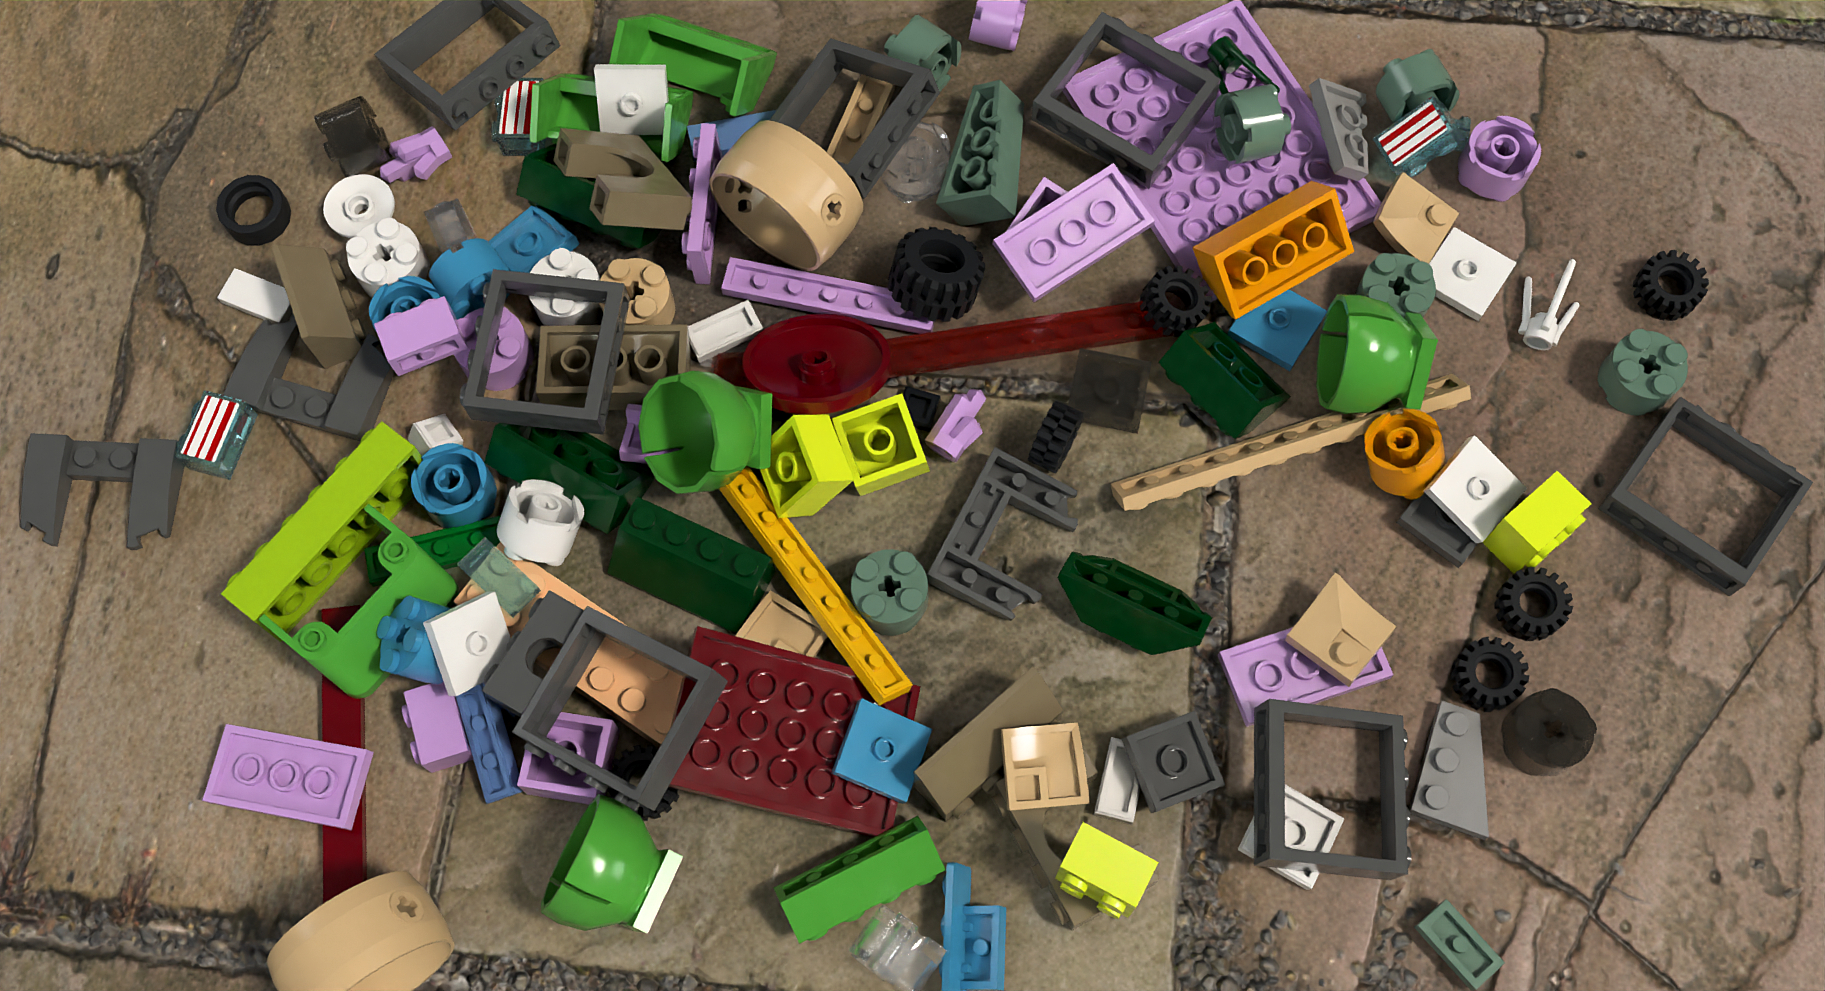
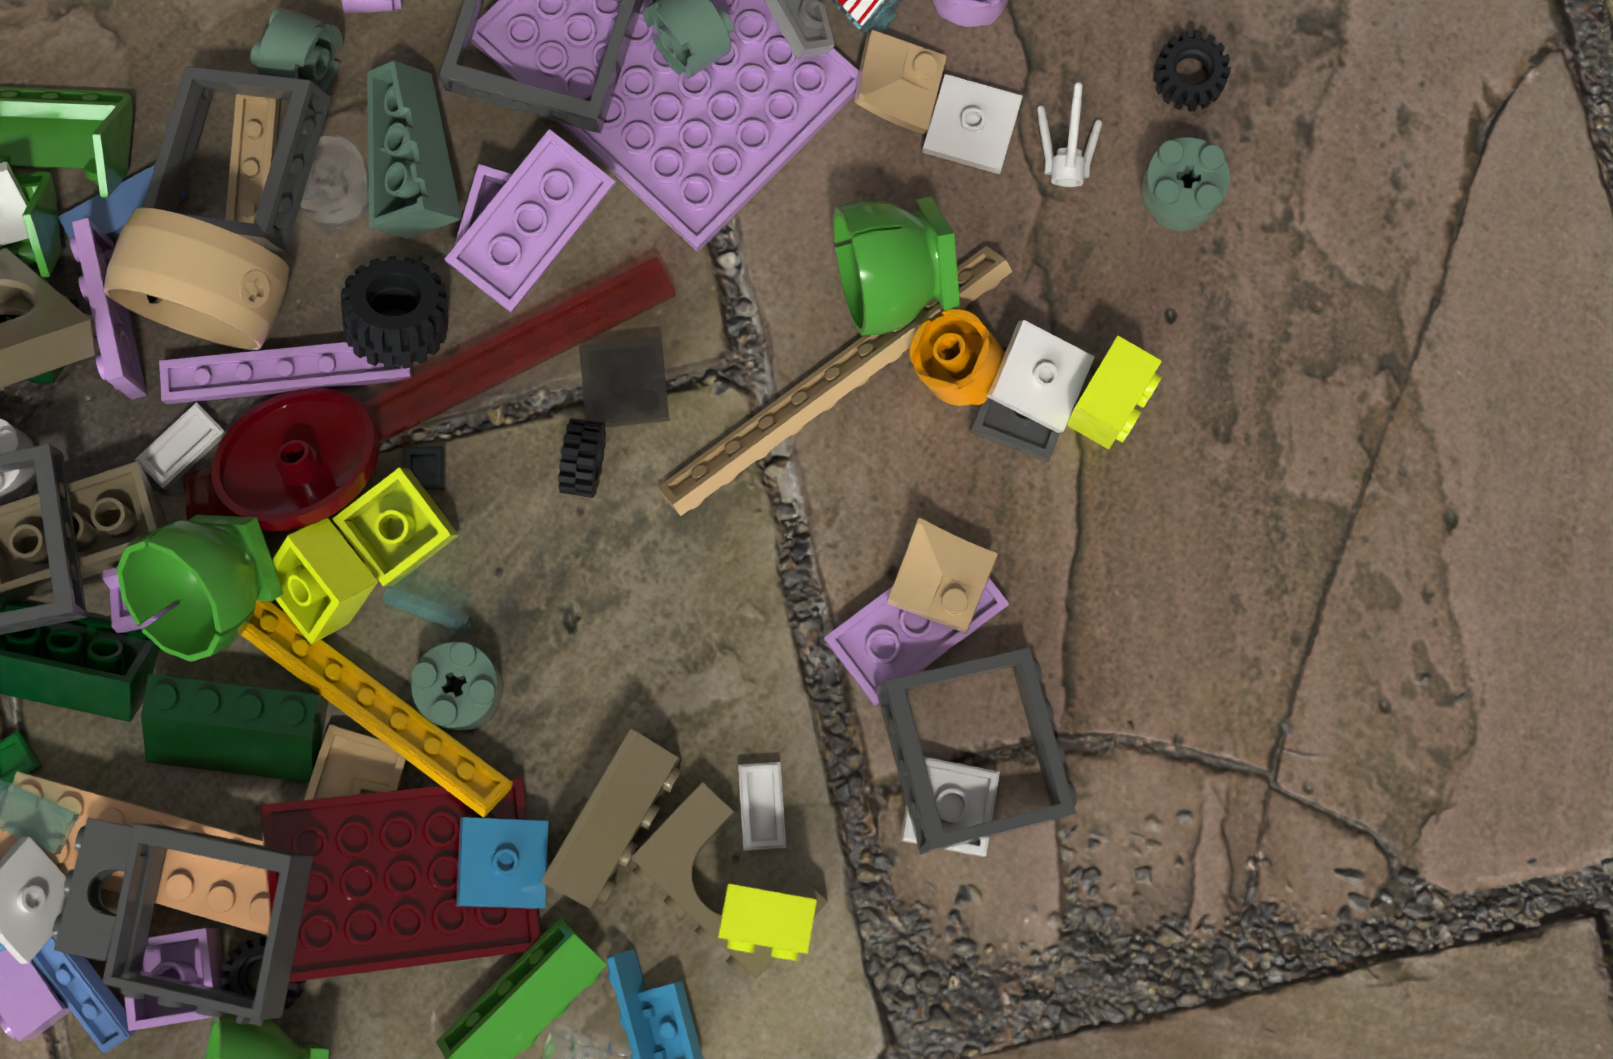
camera: 20 degrees left, 10 degrees up
(539, 522) = (51, 738): white brick -> none
(647, 288) = (69, 419): tan brick -> none
(884, 521) = (427, 610): none -> clear light blue tile
(957, 425) = (471, 476): lavender rock -> none
(957, 563) = (537, 526): dark grey wedge -> none
(1044, 766) = (675, 826): tan plate -> none
(1132, 605) = (717, 616): dark green wedge -> none
(1173, 761) = (808, 772): dark grey plate -> none
(1186, 289) = (676, 242): black tyre -> none
(1222, 379) = (744, 331): dark green slope -> none
(1275, 248) = (756, 166): light orange slope -> none
(1279, 328) = (784, 246): dark azure plate -> none
(1400, 282) = (905, 154): sand green brick -> none
(1452, 773) = (1097, 689): light grey wing -> none
(1459, 945) = (1147, 863): sand green plate -> none
(1505, 658) = (1125, 551): black tyre -> none
(1545, 586) = (1140, 454): black tyre -> none
(1569, 731) = (1203, 606): clear smoke brick -> none
(1678, 541) = (1263, 362): dark grey window -> none

